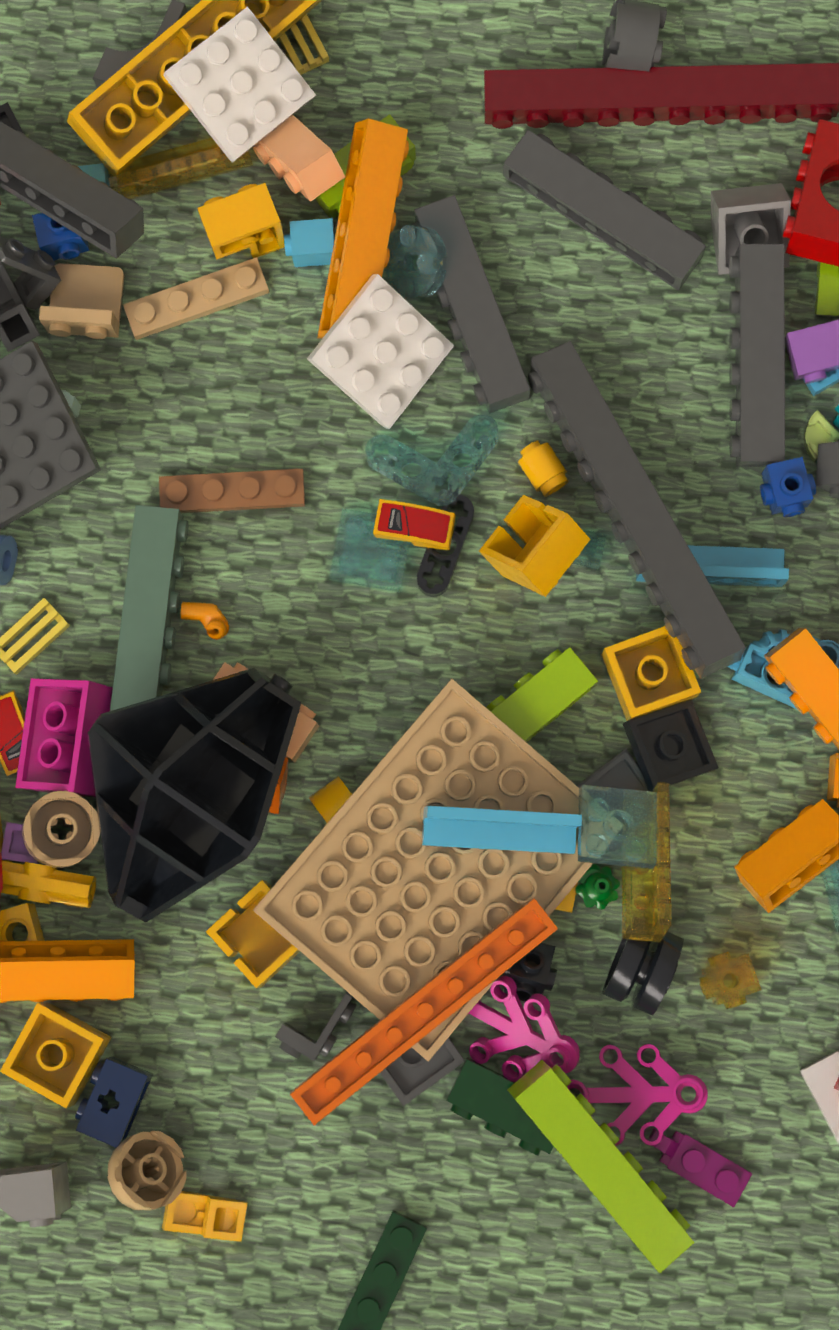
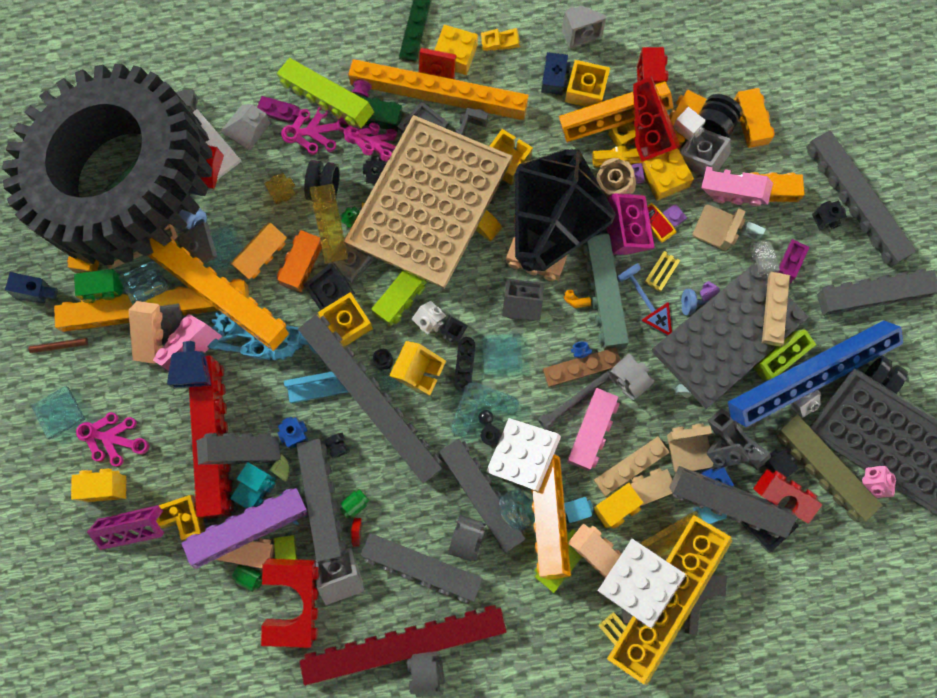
camera: 160 degrees right, 5 degrees down
(62, 548) = (659, 318): none -> medium blue piece
(146, 1171) = (530, 45): tan cylinder -> none
(149, 442) = (631, 377): none -> light grey brick
(173, 251) = (653, 486): none -> tan brick
(225, 520) = (581, 349): none -> blue plate
(245, 371) = (593, 429): none -> bright pink brick
(305, 640) = (523, 300): none -> dark grey slope
(305, 1209) = (459, 43): none -> yellow brick
(319, 409) = (548, 420): none -> dark grey piece
(353, 1168) = (437, 63): none -> red plate
(369, 1127) = (440, 89): none -> light orange brick
(414, 524) = (482, 367): slope -> none
(423, 1011) = (419, 133): orange plate -> none
(430, 436) = (486, 418): none -> black plate
(449, 610) = (453, 329): none -> black brick
(490, 642) = (429, 318): none -> white brick
(500, 829) = (402, 221): medium azure fence -> none
(515, 232) = (467, 538): none -> dark grey brick
(522, 1166) = (361, 87): none -> magenta wheel
(543, 468) = (423, 414): yellow brick -> none
(597, 580) = (380, 357): none -> black wheel
(617, 827) = (345, 235): clear light blue plate -> none
(699, 340) = (354, 504): none -> green brick
(705, 295) = (356, 532): none -> red tile
(710, 448) = (337, 445): none -> black wheel
(718, 817) = (299, 261): none -> orange brick
(778, 1145) = (246, 125): none -> light grey slope

